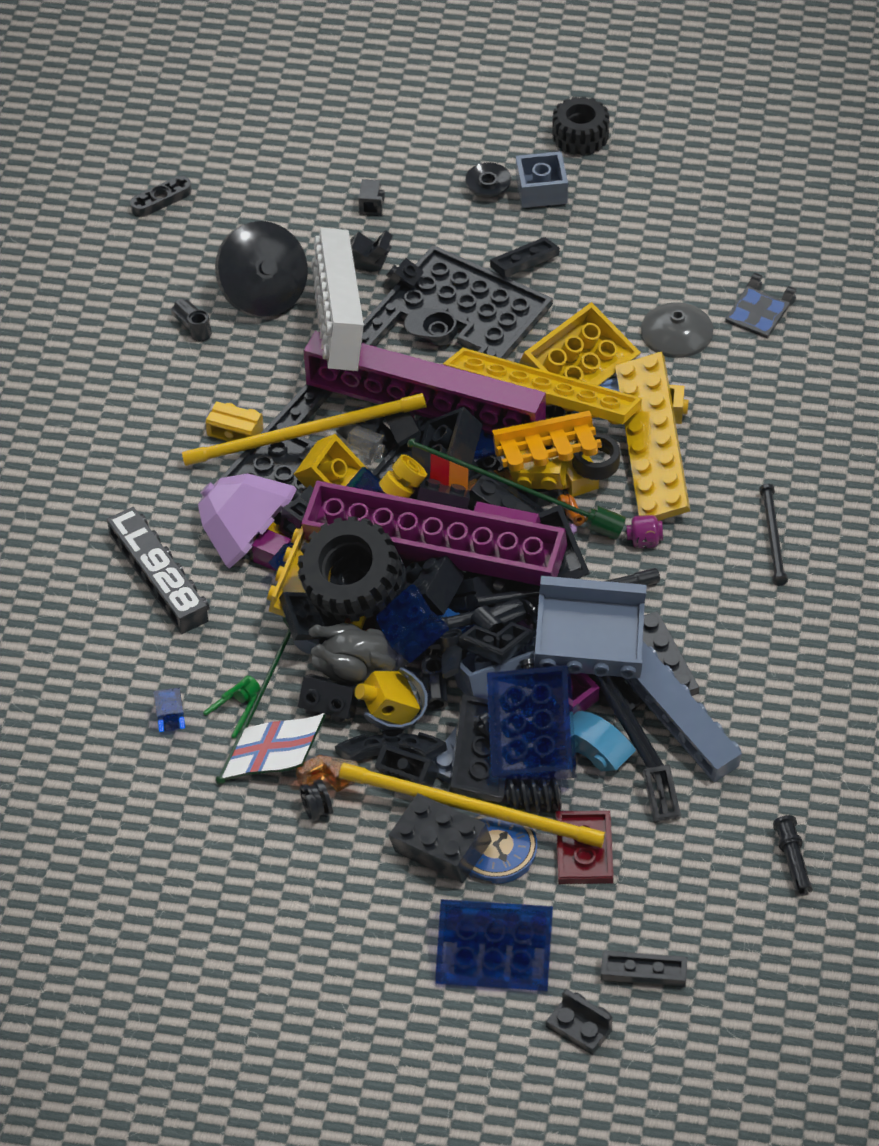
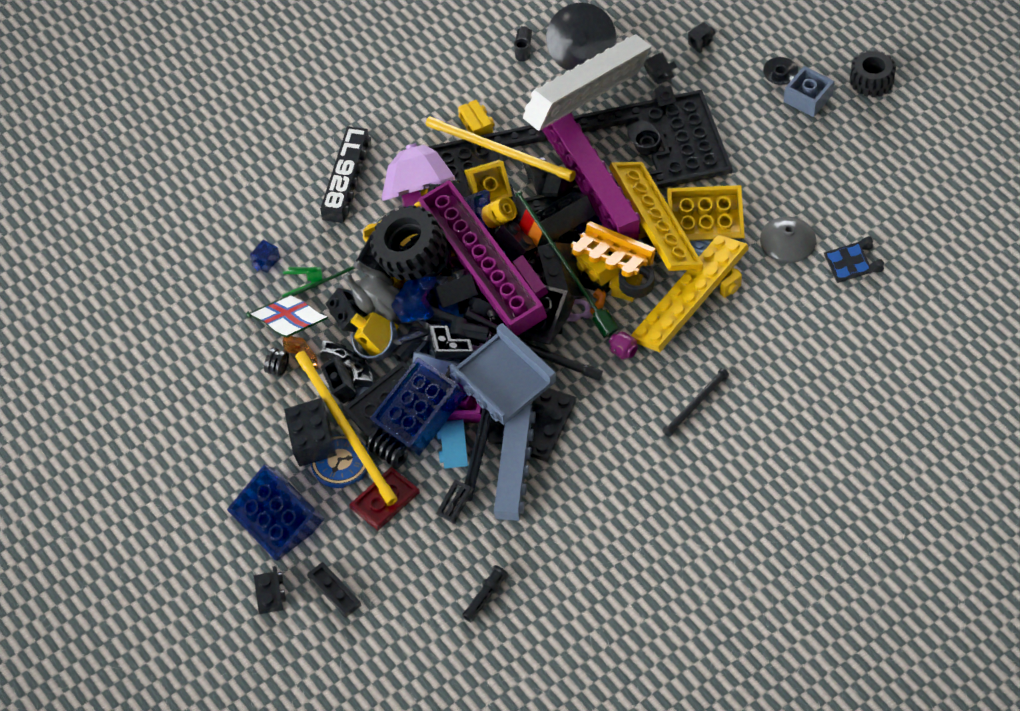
camera: 45 degrees right, 5 degrees up
(365, 444) = (522, 180): clear brick -> none
(524, 257) = (745, 132): black plate -> none

